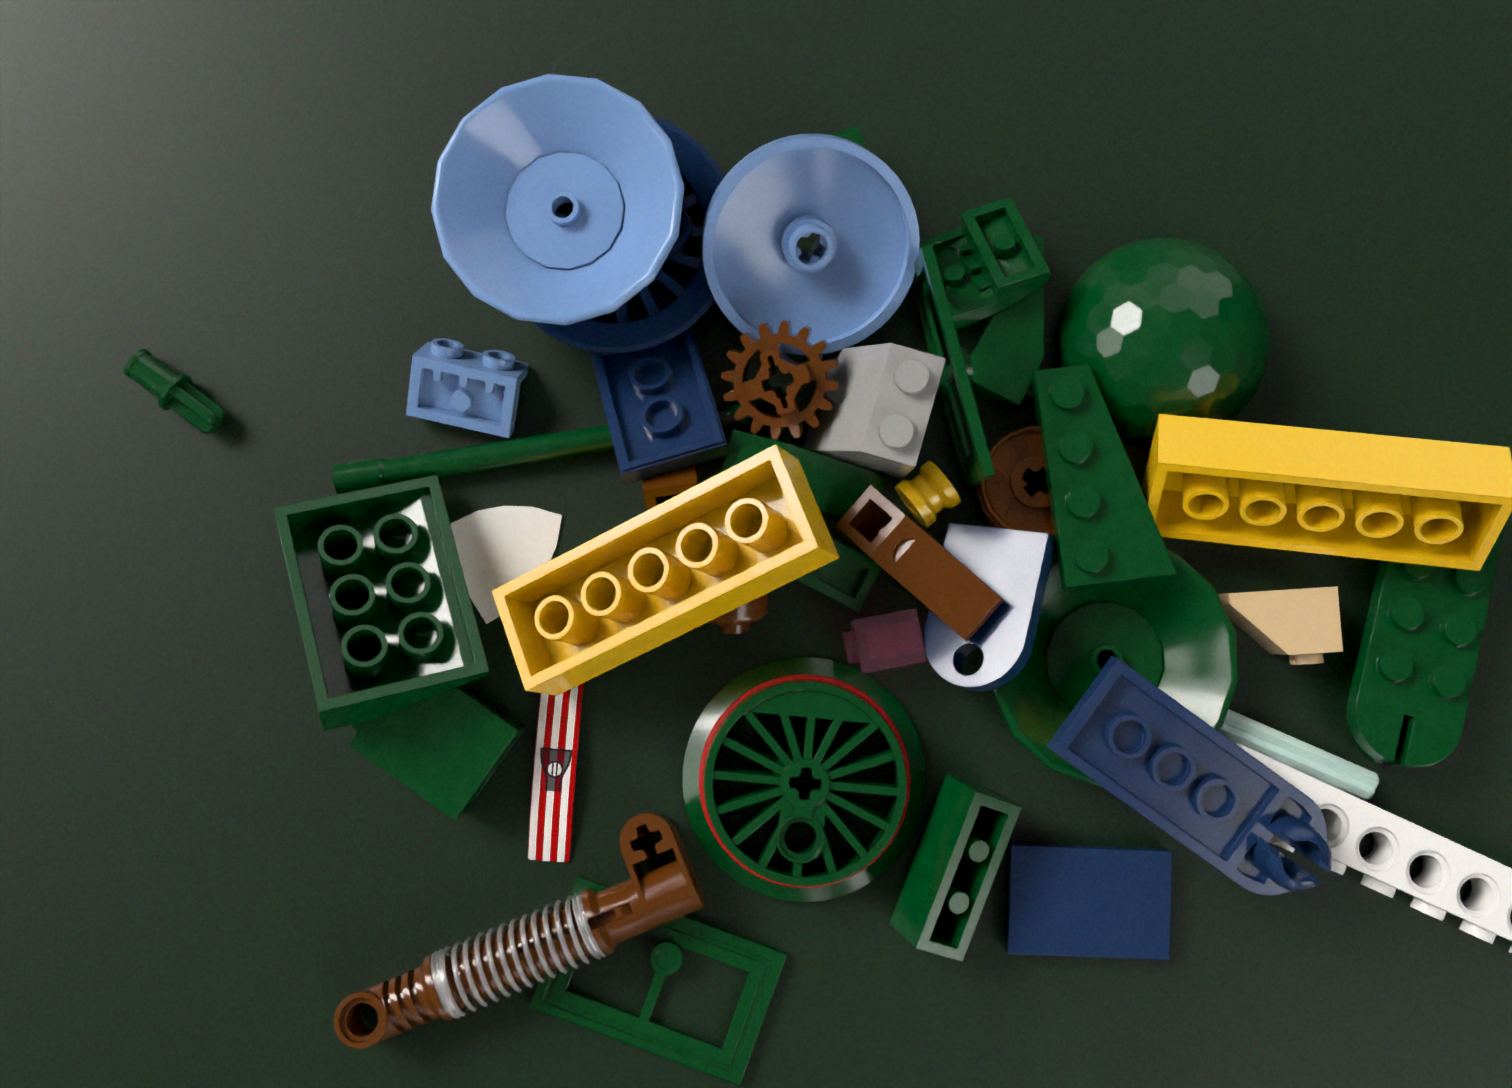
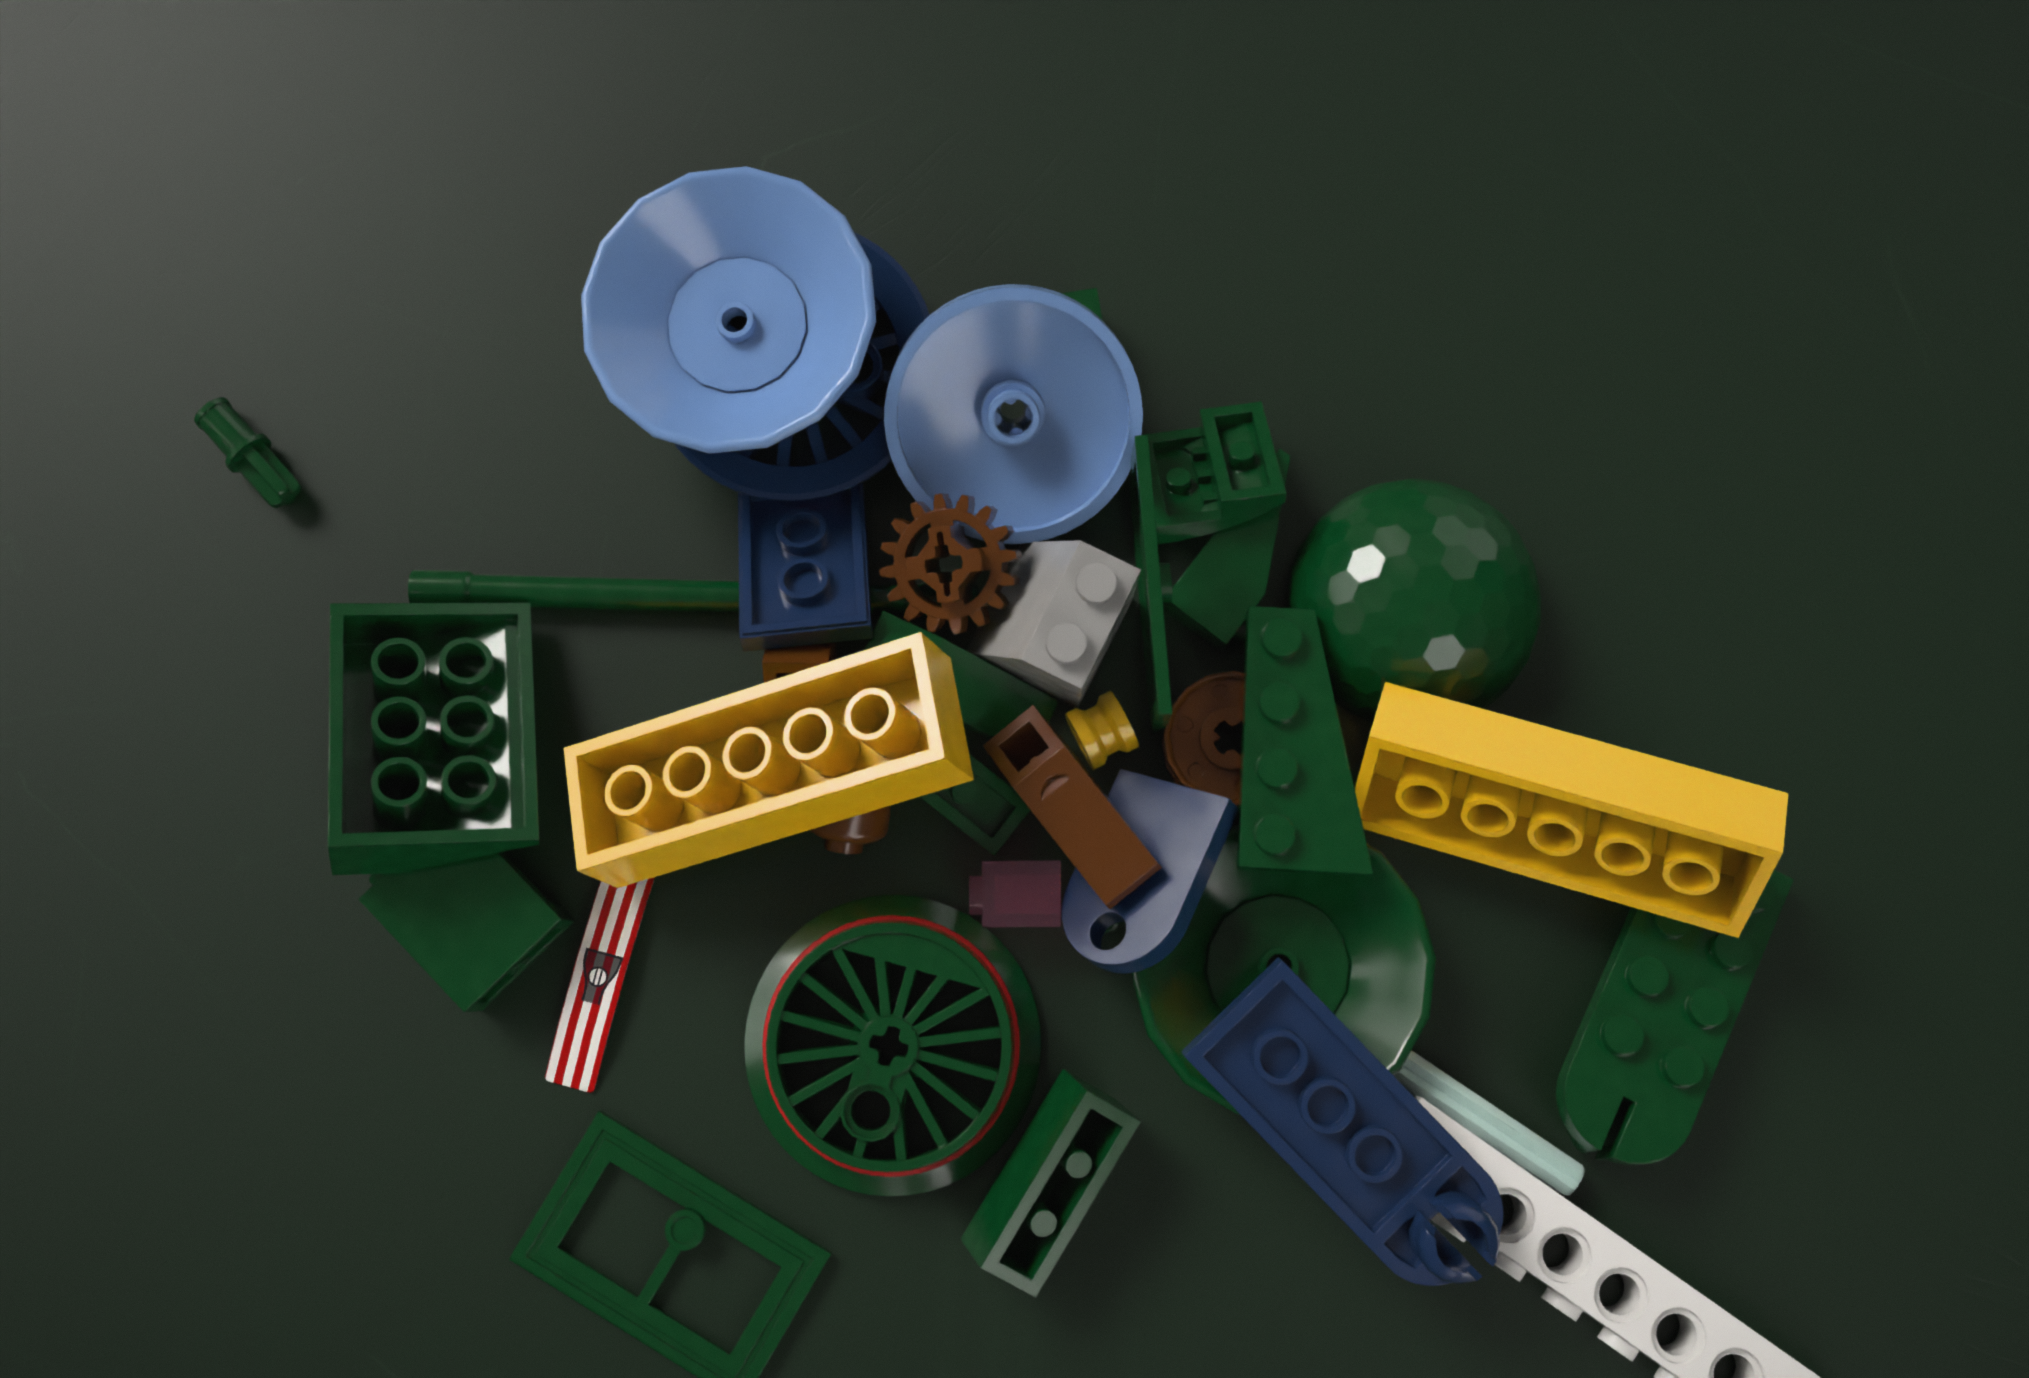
camera: 10 degrees right, 5 degrees down
(465, 387) = (585, 508): medium blue bracket -> none
(501, 546) = (587, 699): white sticker -> none
(535, 947) = (529, 1185): reddish brown piece -> none
(1088, 901) = (1207, 1257): dark blue tile -> none
(1289, 621) = (1505, 959): tan slope -> none

